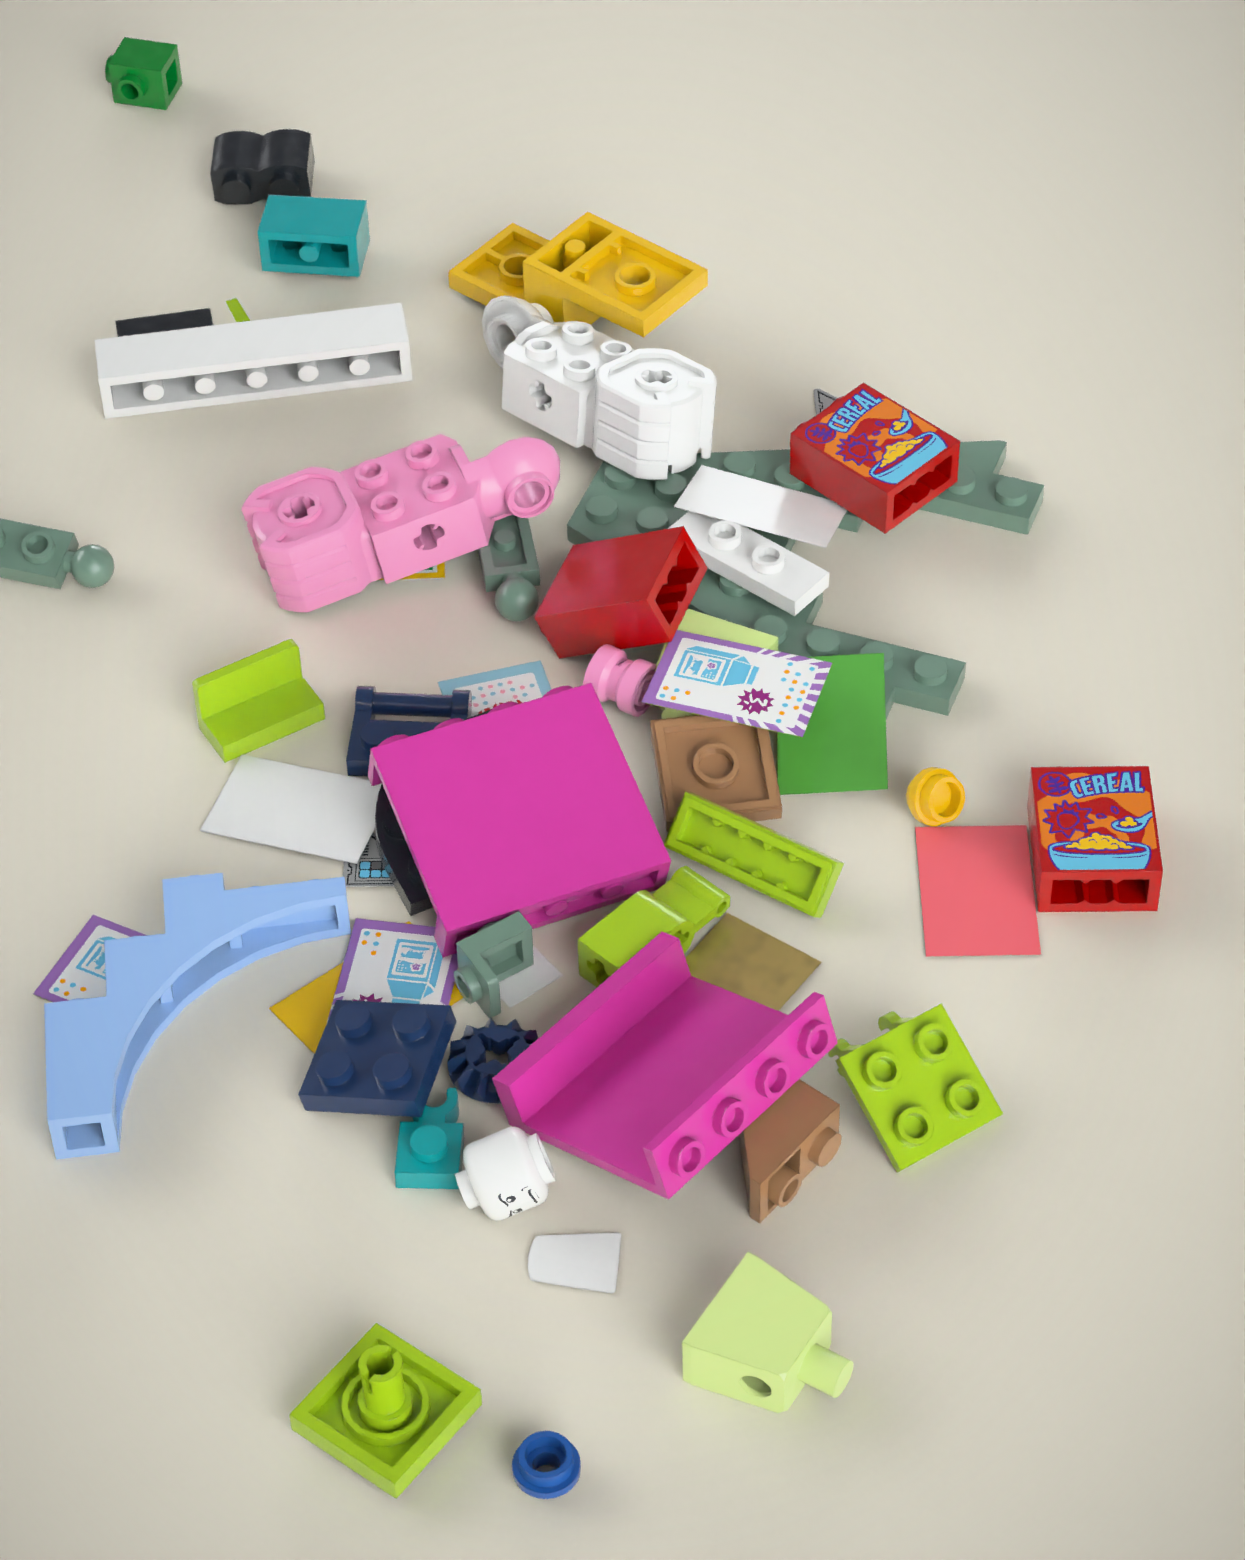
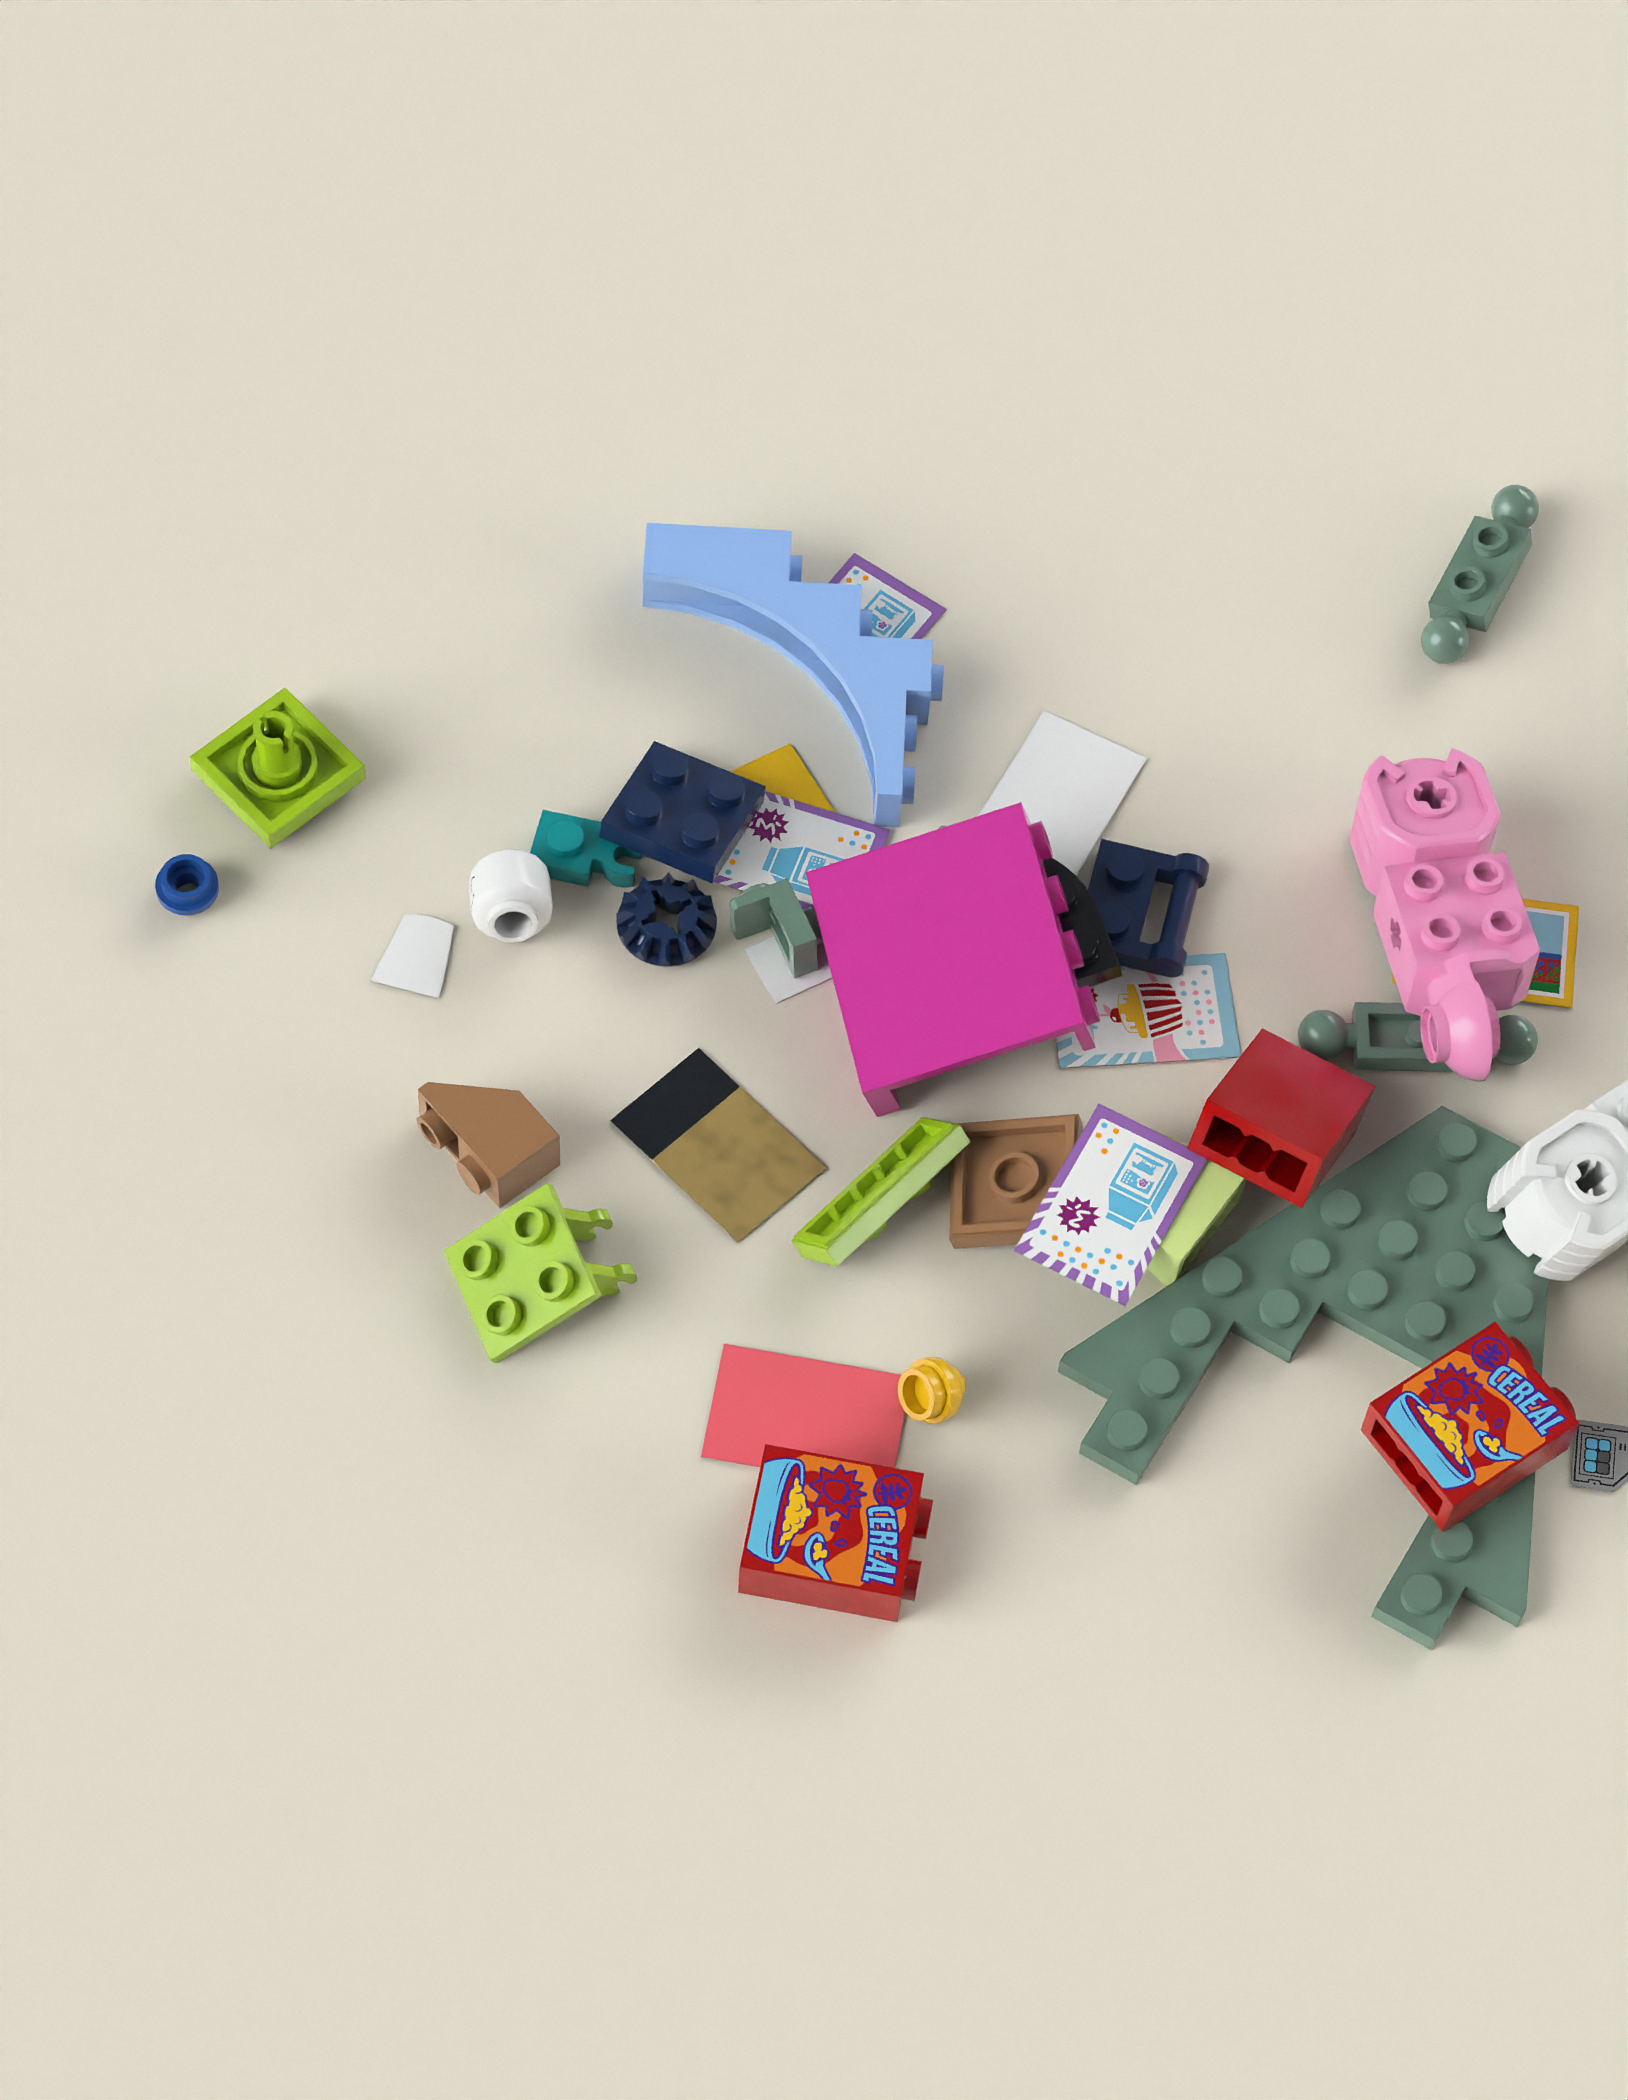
camera: 95 degrees right, 15 degrees up
(255, 701) = (1199, 769): lime panel -> none
(620, 679) = (1172, 1106): bright pink wheel -> none
(659, 1069) = (592, 1041): dark pink panel -> none
(675, 908) = (794, 1075): lime piece -> none
(755, 562) = (1327, 1263): white plate -> none
(762, 506) = (1415, 1292): white sticker -> none
(763, 1341) = (262, 1076): yellowish green torso -> none
(845, 735) = (1053, 1321): bright green sticker -> none

